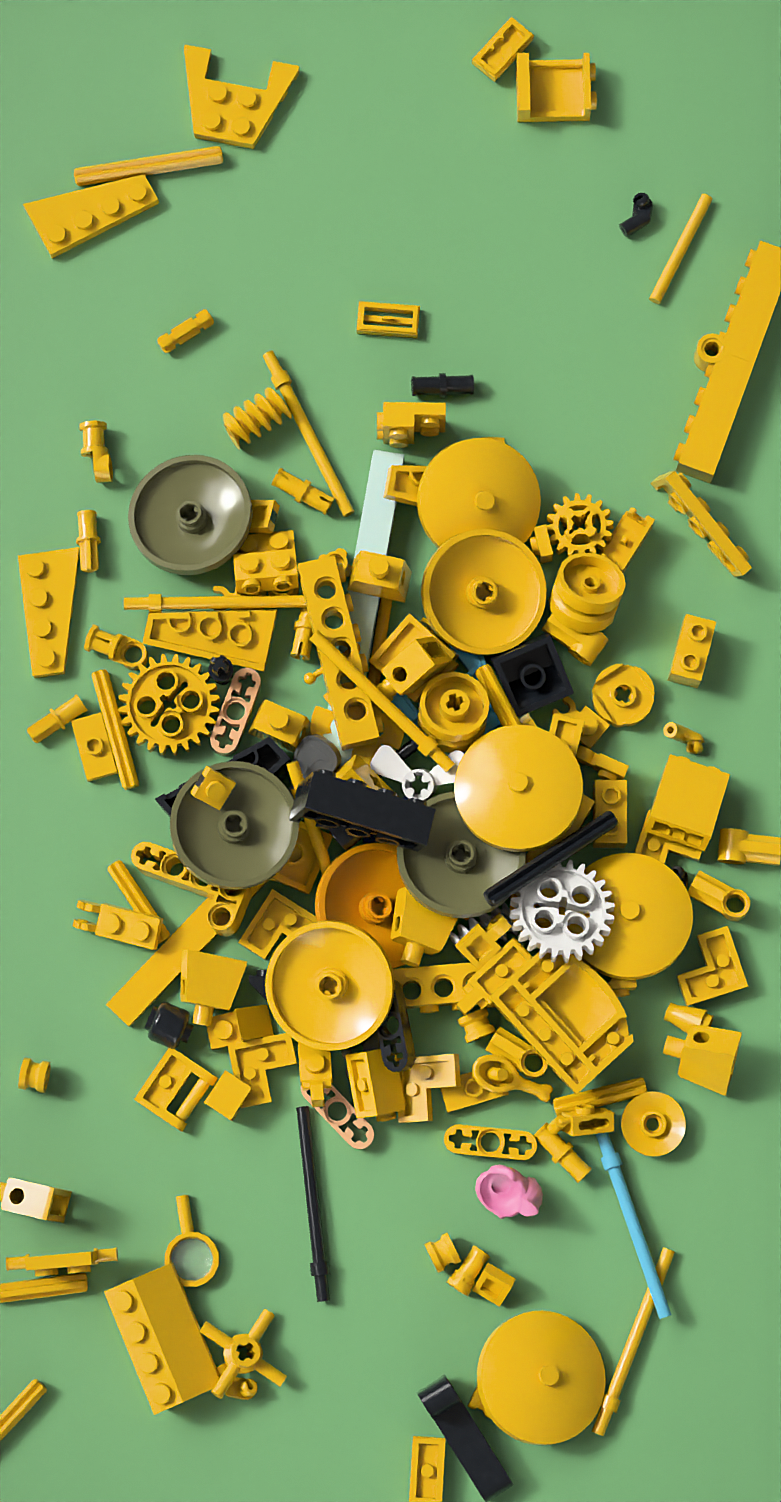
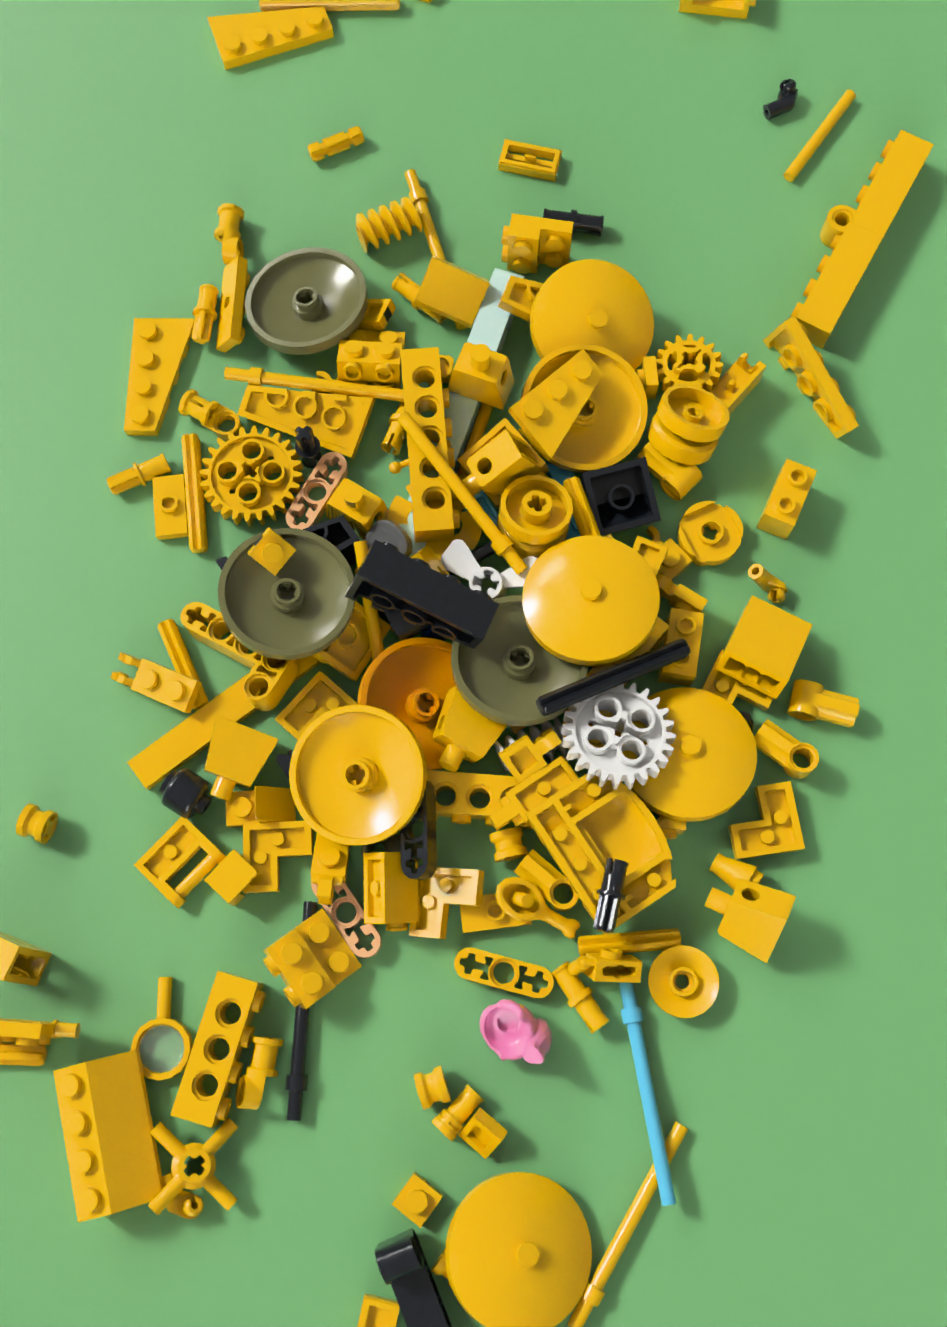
camera: 10 degrees right, 5 degrees down
(114, 527) = (232, 304): none -> yellow tile
(229, 1299) = (191, 1100): none -> yellow brick
(281, 1277) = (262, 1065): none -> yellow connector
(314, 1158) = (311, 960): none -> yellow plate
(334, 481) = (451, 291): none -> yellow slope
(445, 1350) = (417, 1199): none -> yellow plate
(457, 594) = (556, 402): none -> yellow wing
(575, 1058) = (610, 895): none -> black axle

